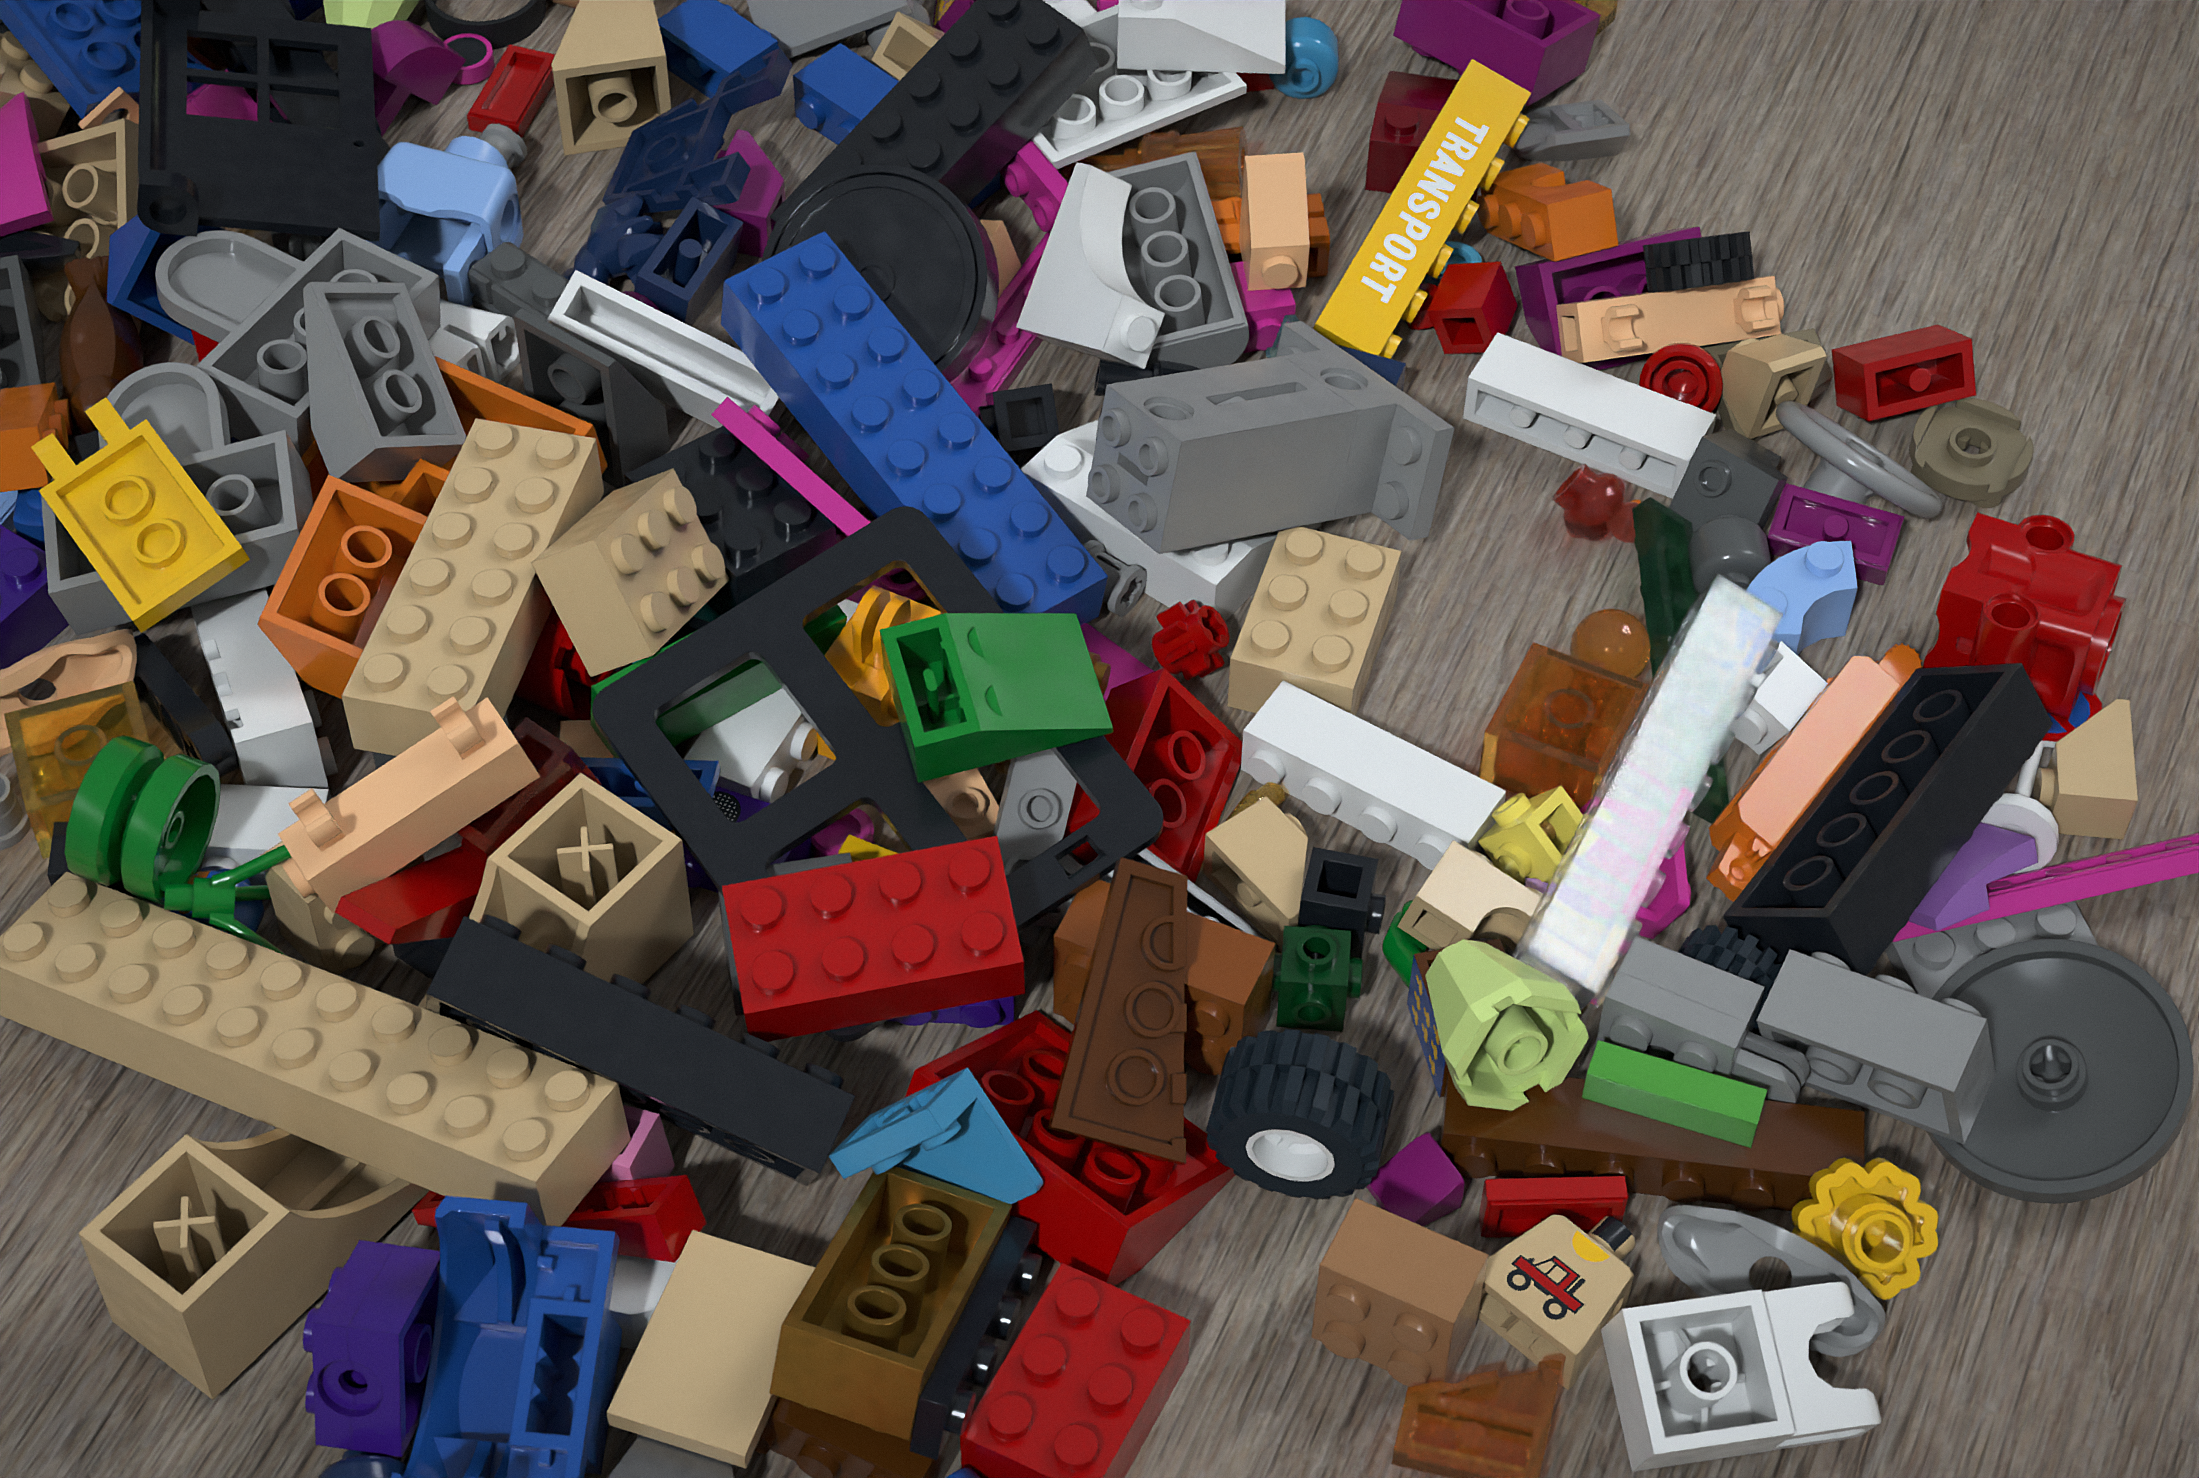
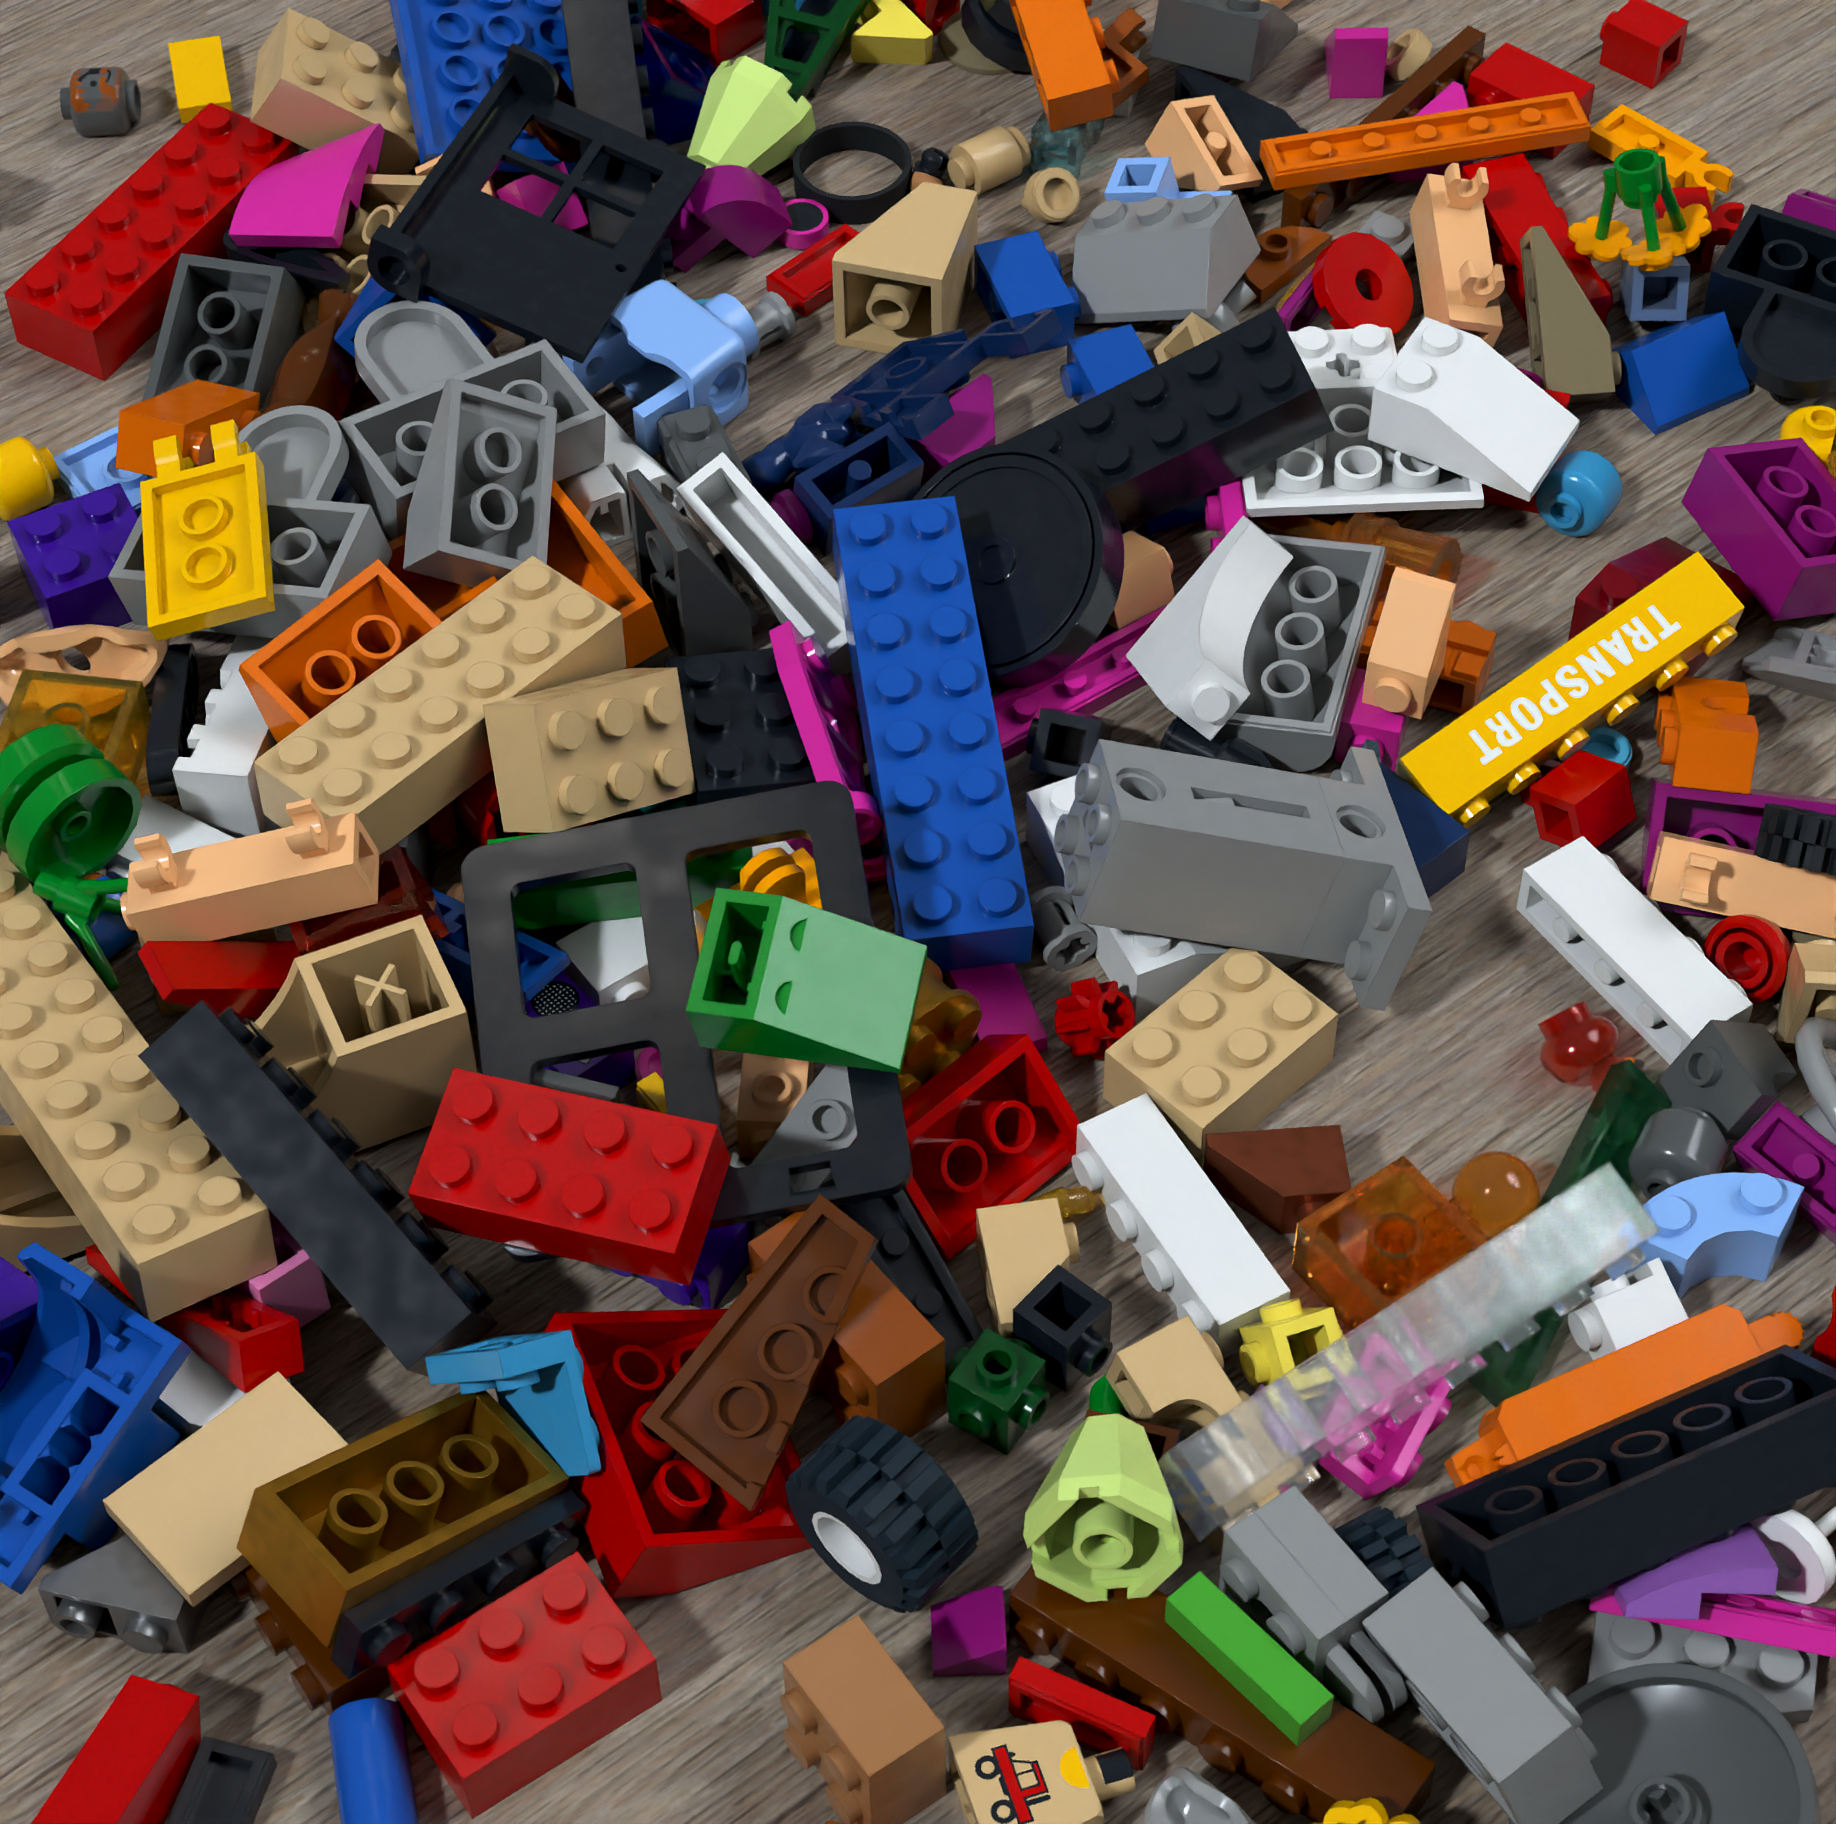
camera: 30 degrees right, 0 degrees up
(1434, 702) = (1278, 1172): none -> copper slope

